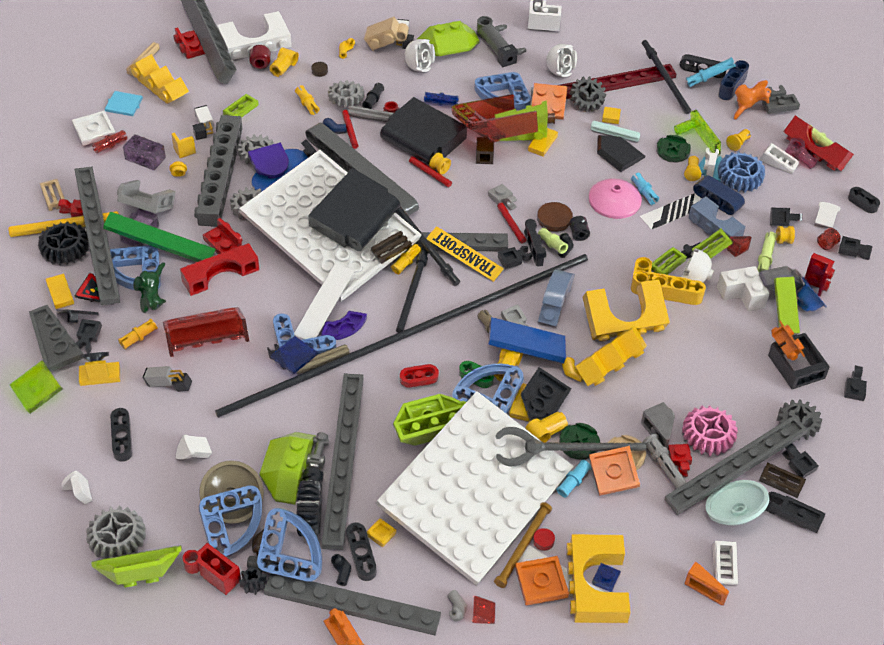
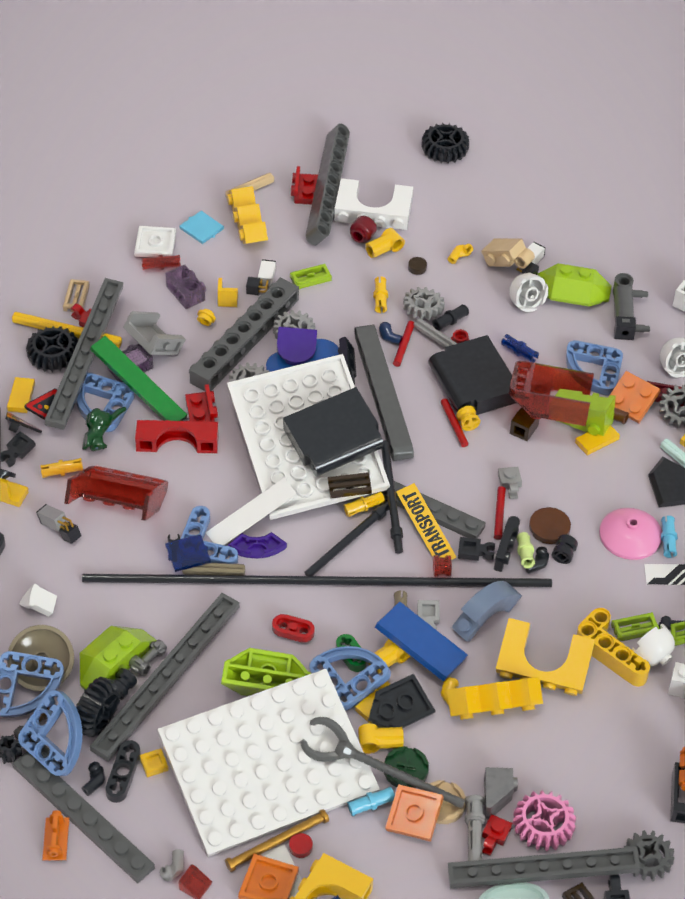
camera: 30 degrees right, 0 degrees up
(499, 278) = (442, 565): none -> clear red wheel

